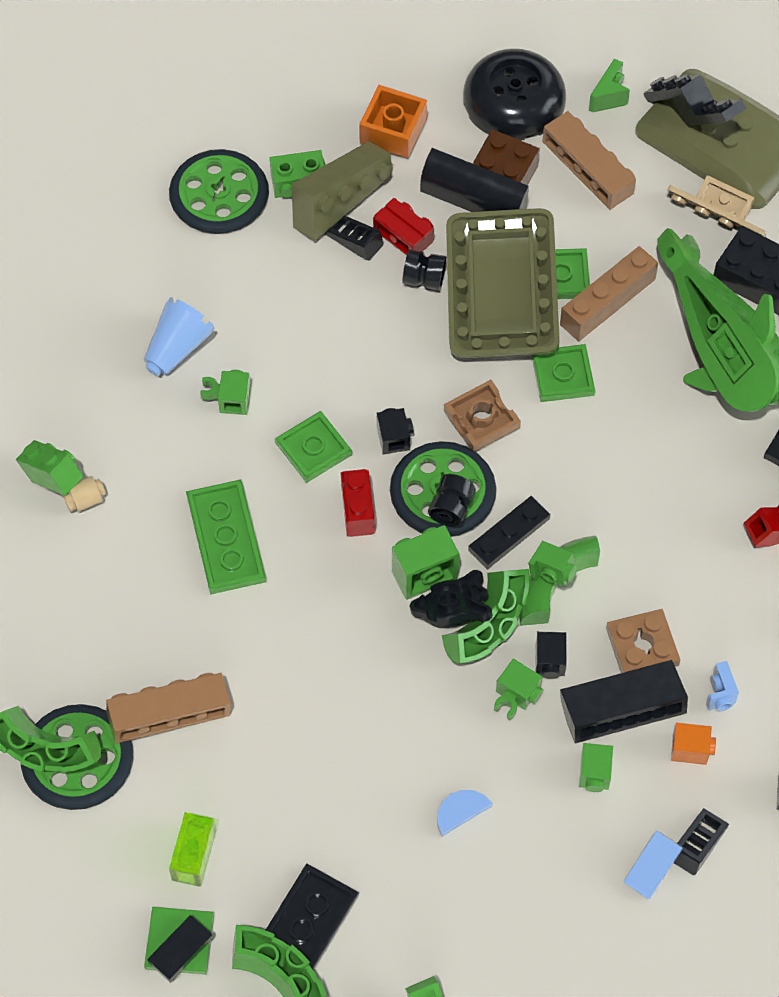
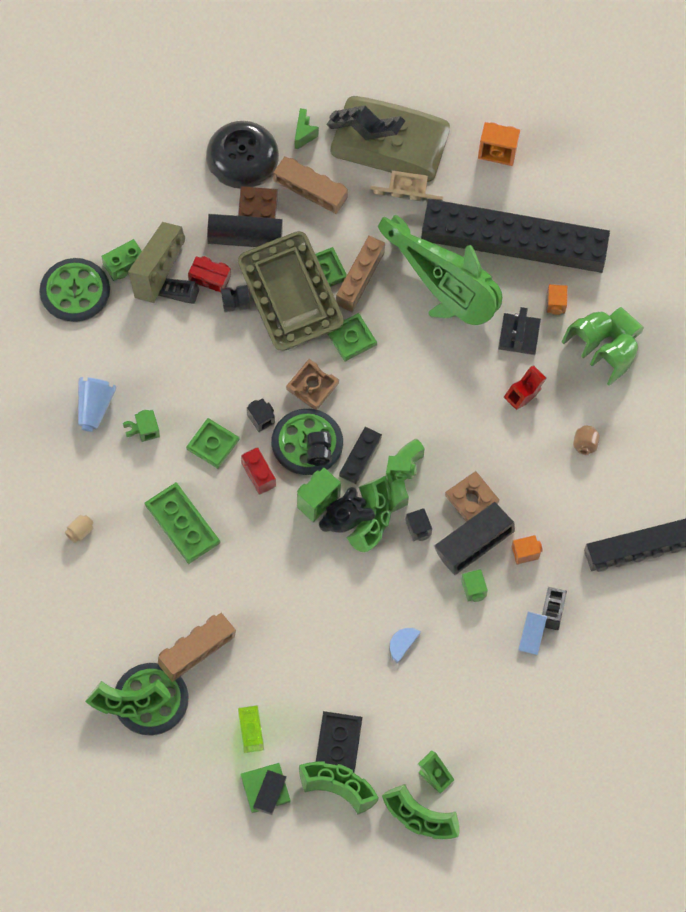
camera: 25 degrees left, 5 degrees up
(50, 467) = (51, 519): bright green brick -> none
(393, 120) = (172, 201): orange brick -> none
(517, 687) = (407, 553): bright green brick -> none
(725, 688) = (531, 504): light blue bracket -> none

